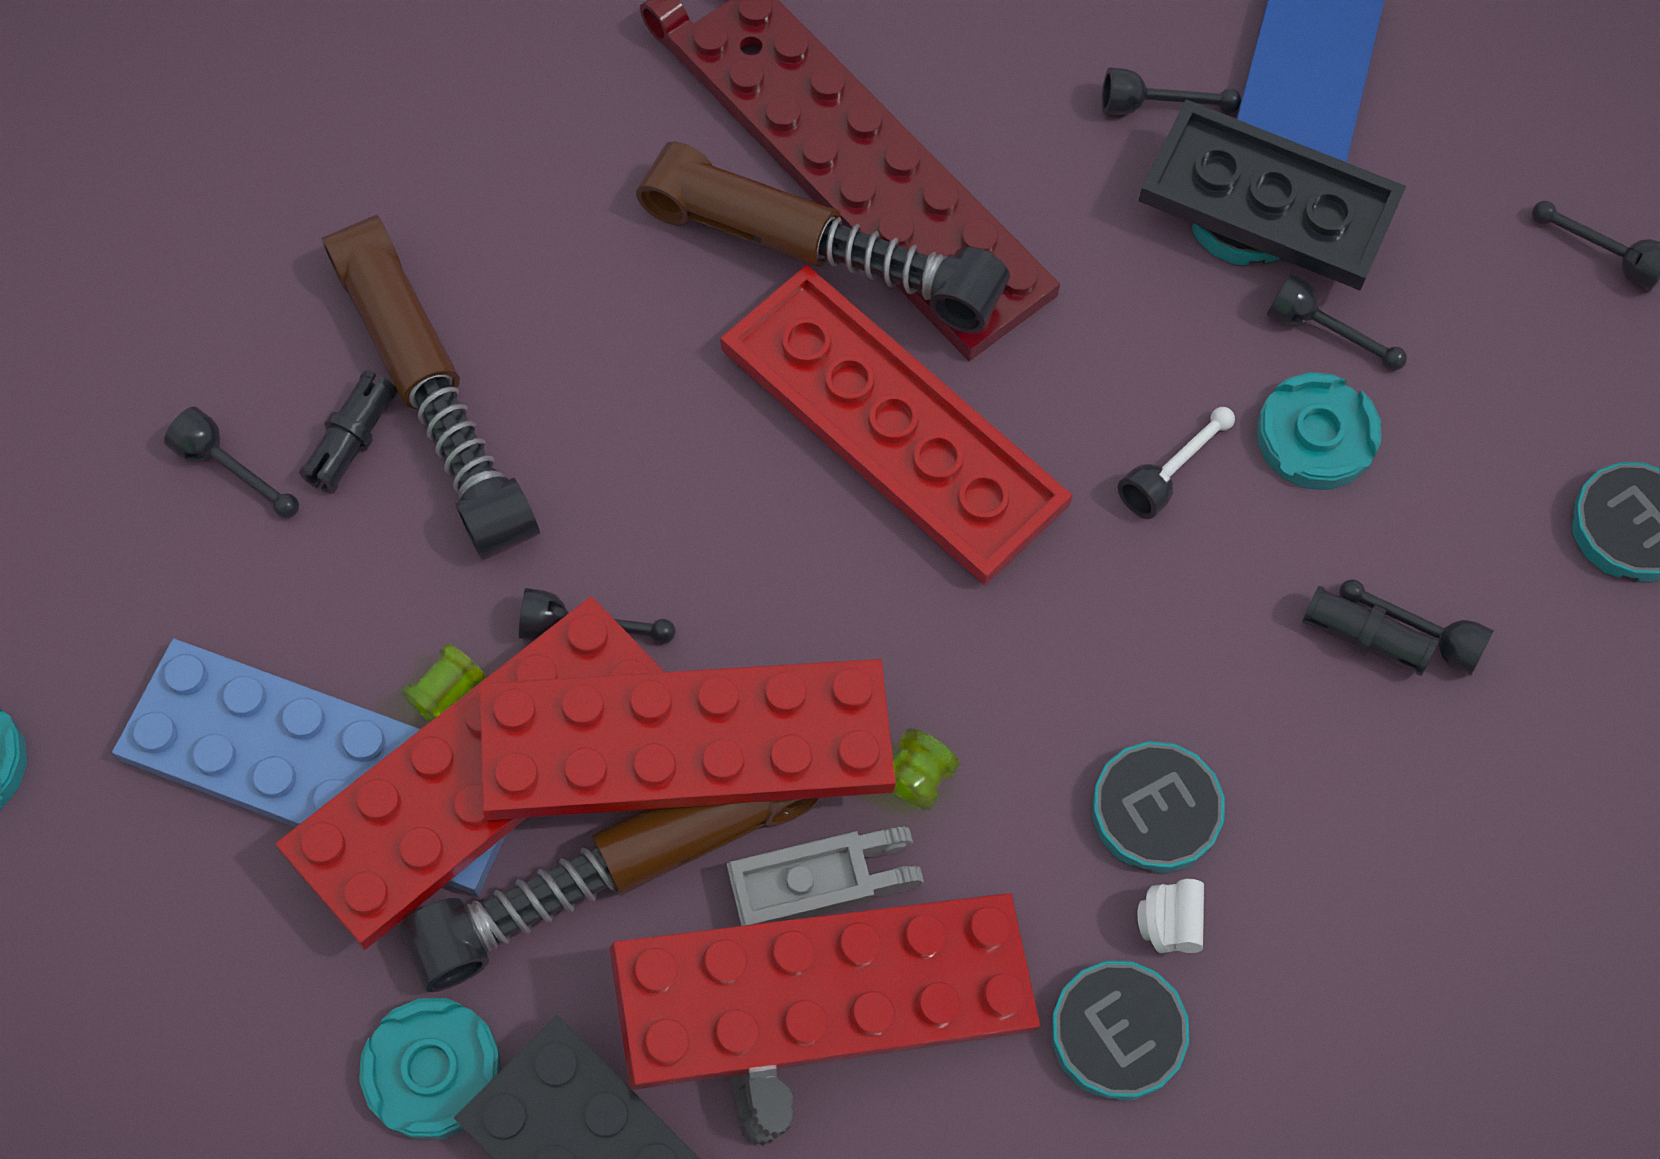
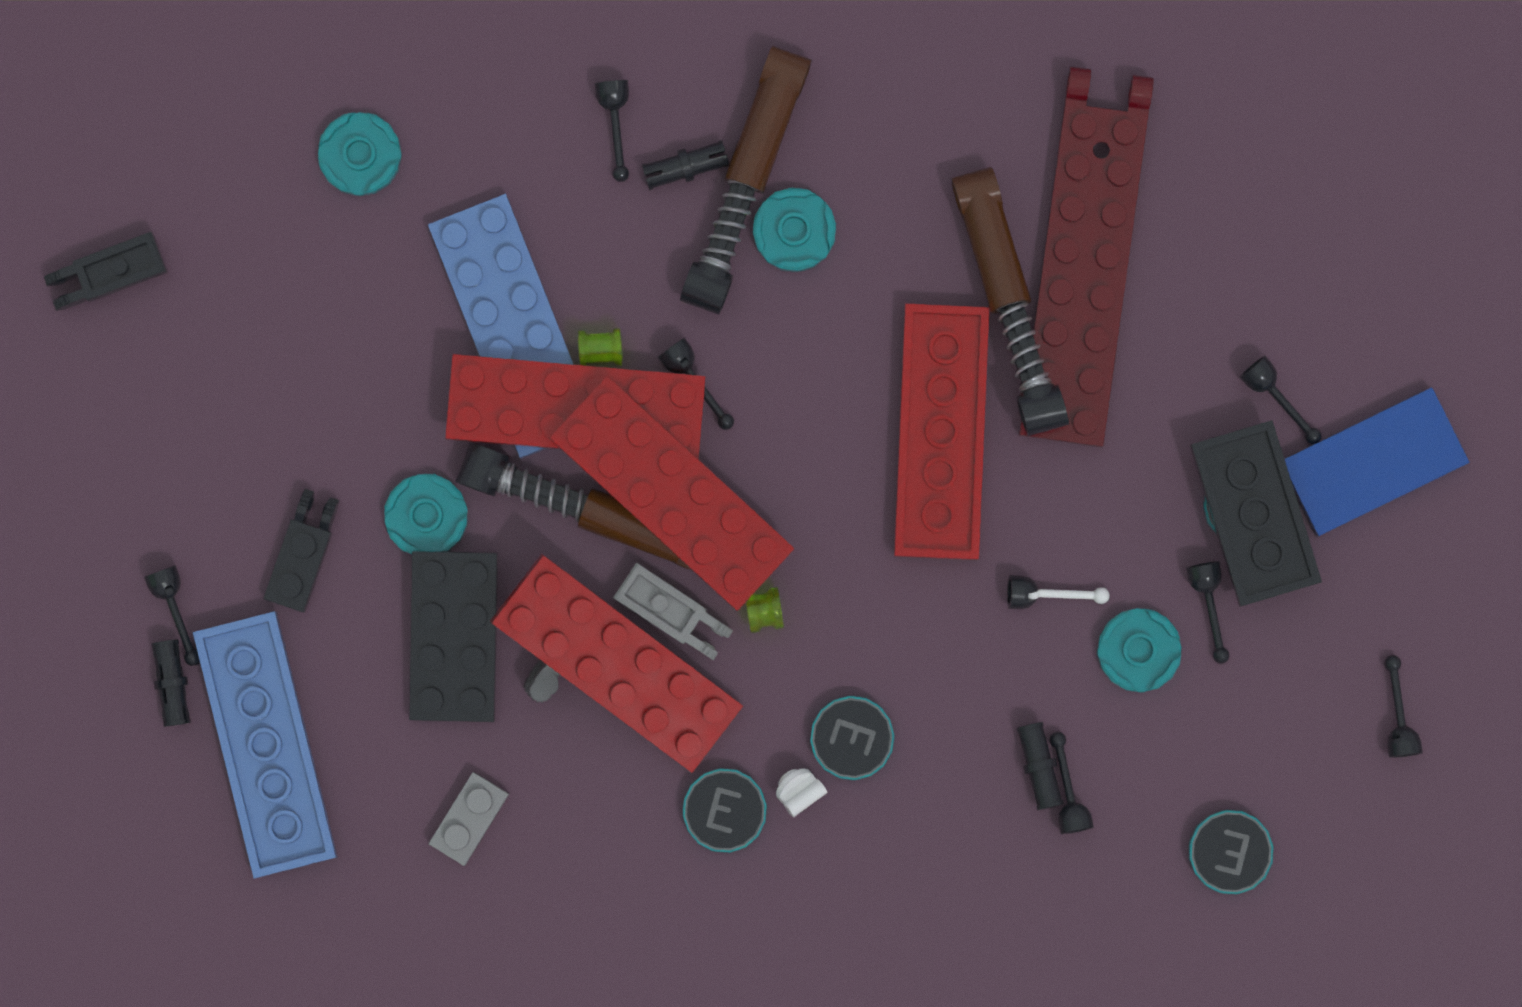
camera: 55 degrees right, 20 degrees up
(530, 389) = (794, 229): none -> teal tile

